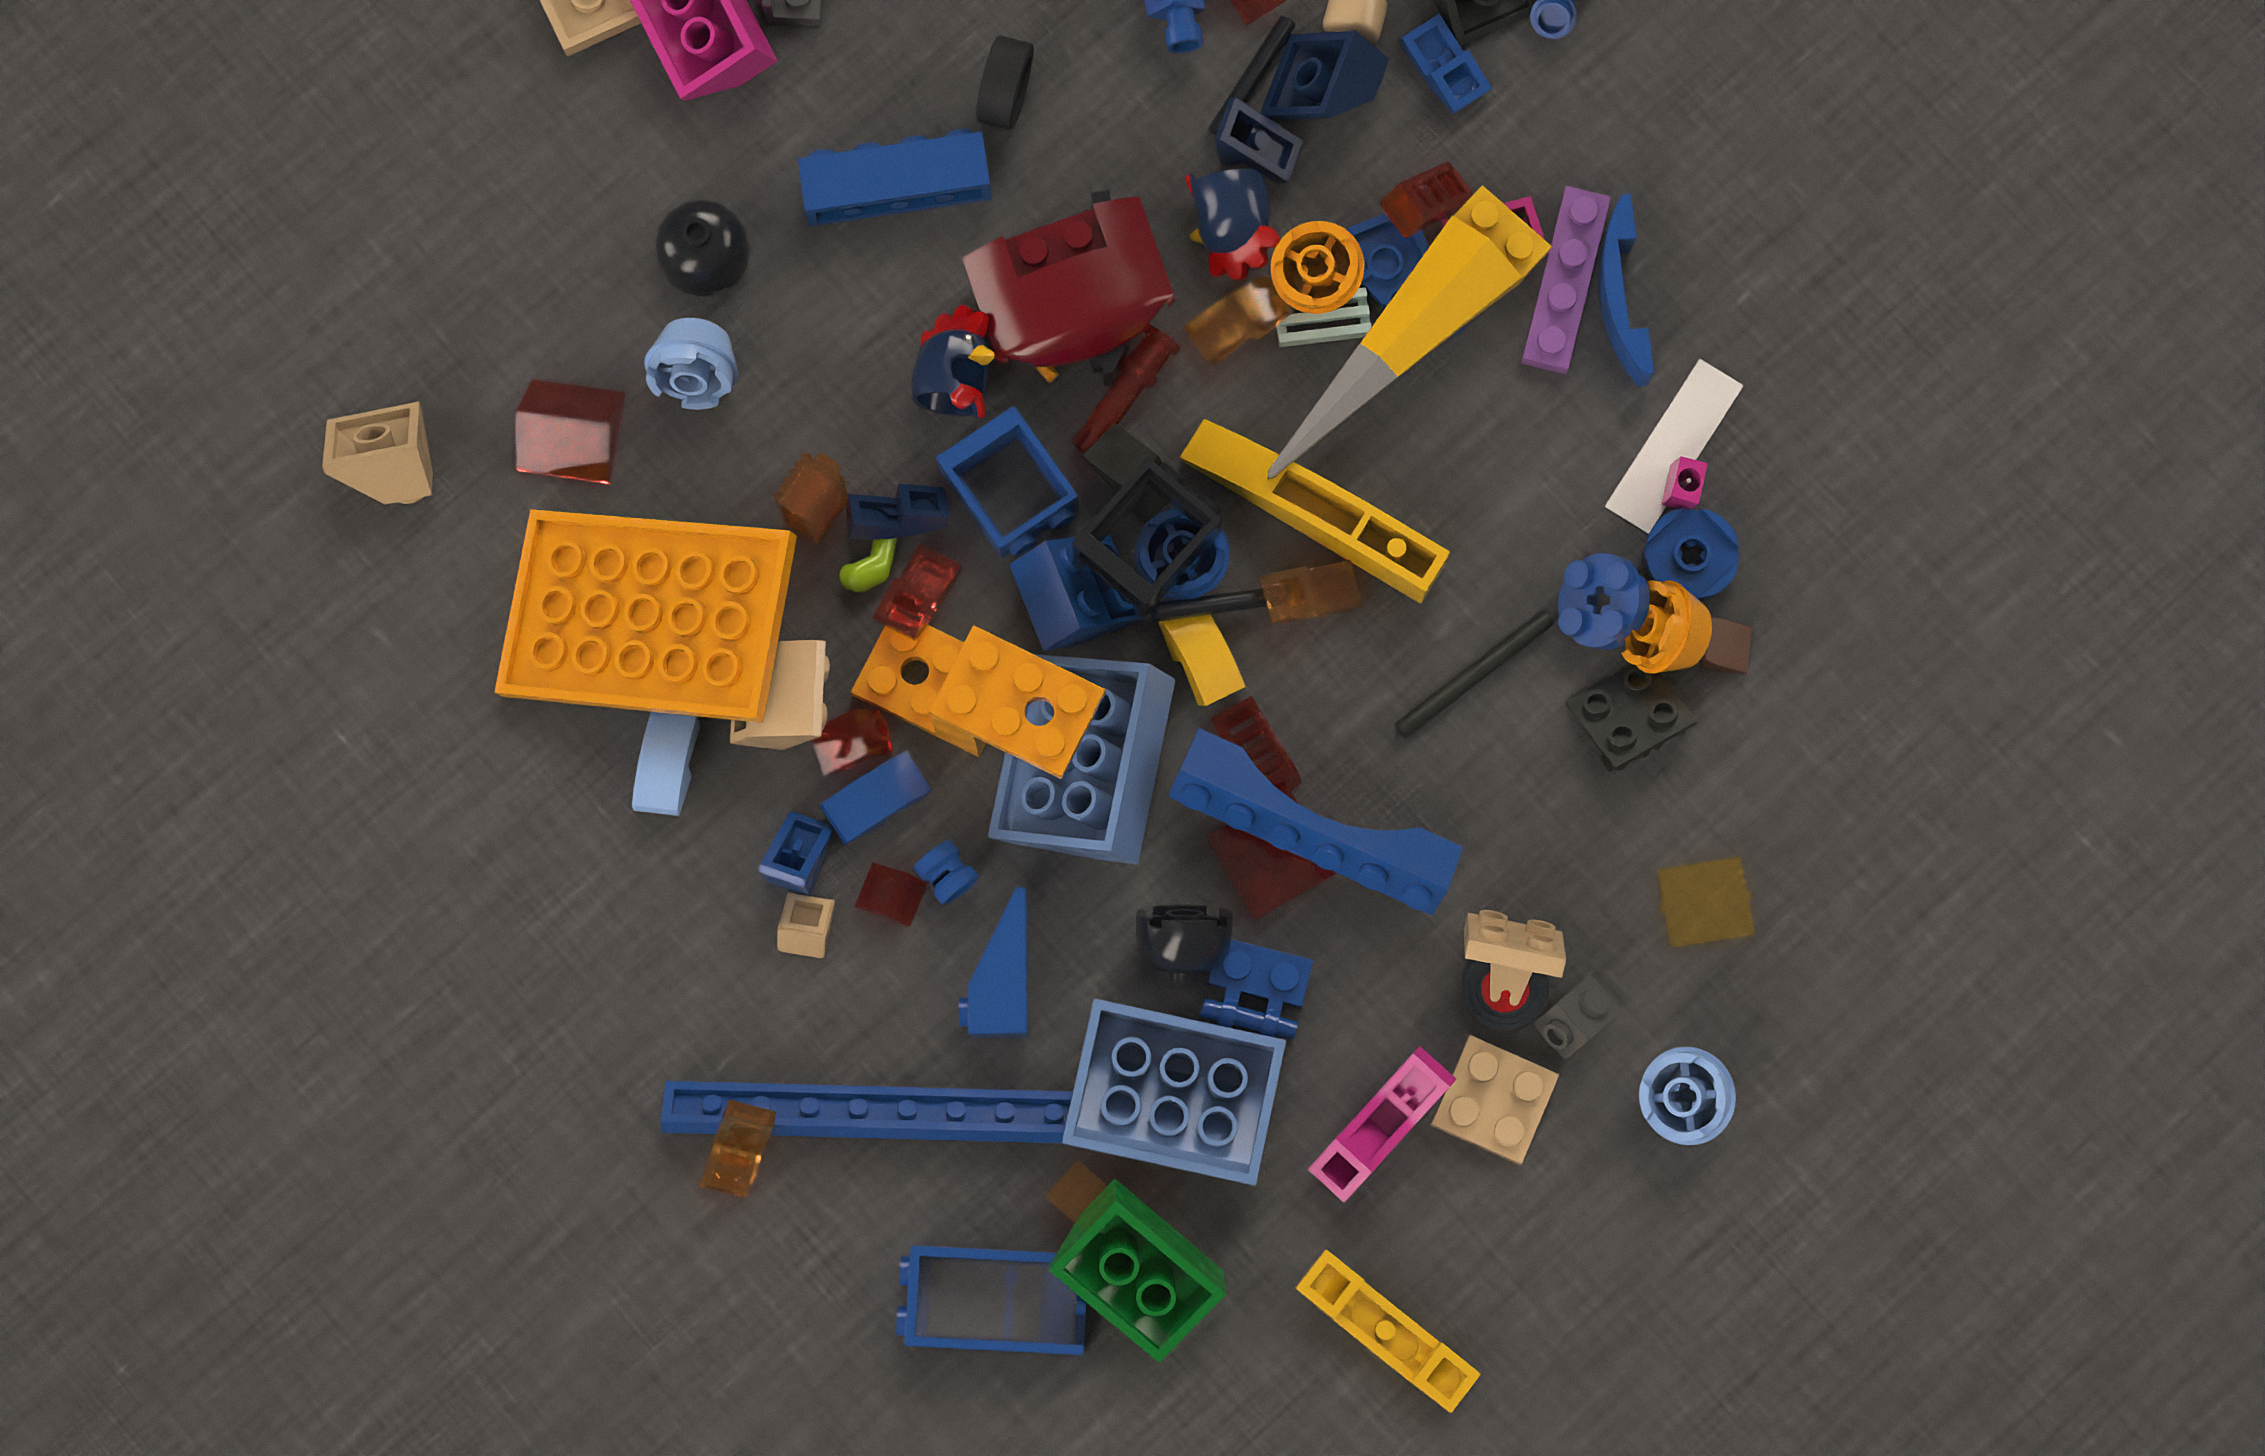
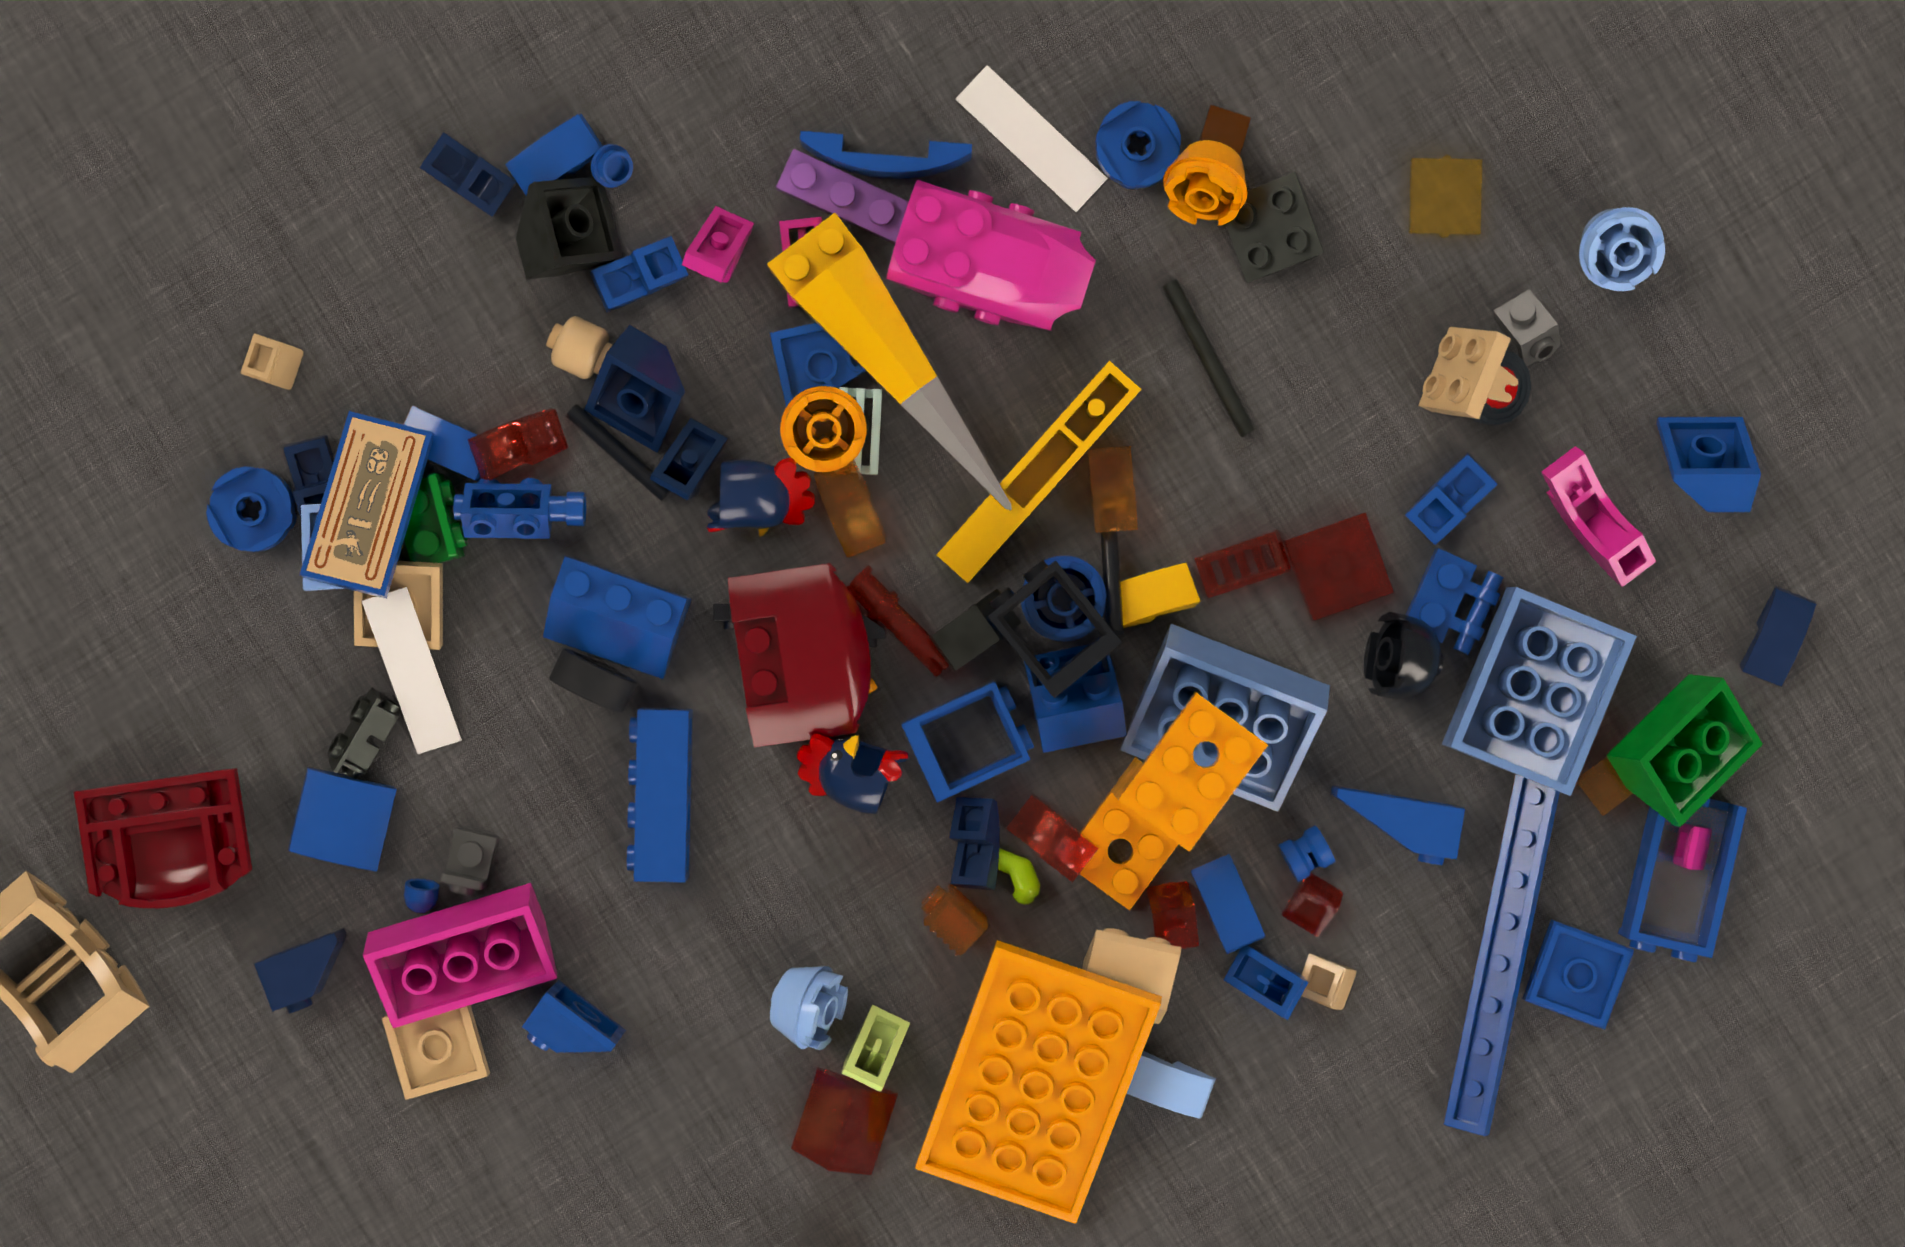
camera: 80 degrees left, 10 degrees up
(636, 120) = (570, 1023): none -> blue slope
(654, 444) = (875, 1048): none -> yellowish green slope
(702, 247) = (695, 978): black cylinder -> none
(737, 1148) = (1517, 1073): clear orange slope -> none
(860, 1204) = (1578, 974): none -> blue plate
(1027, 1308) = (1692, 846): none -> dark pink slope
(1077, 99) = (615, 616): none -> blue slope
(1285, 1365) = (1779, 636): none -> dark blue slope
(1371, 966) = (1451, 498): none -> blue slope
(1387, 1331) = (1767, 542): yellow slope -> none
(1399, 863) = (1279, 598): blue arch -> none
(1423, 202) = (770, 316): clear red slope -> none
(1468, 1244) = (1711, 460): none -> blue slope
(1490, 136) = (718, 245): none -> dark pink slope
(1495, 1100) = (1585, 412): tan plate -> none
(1536, 406) = (989, 258): none -> dark pink slope
(1579, 597) = (1167, 254): blue plate -> none
(1684, 483) = (1074, 137): dark pink piece -> none

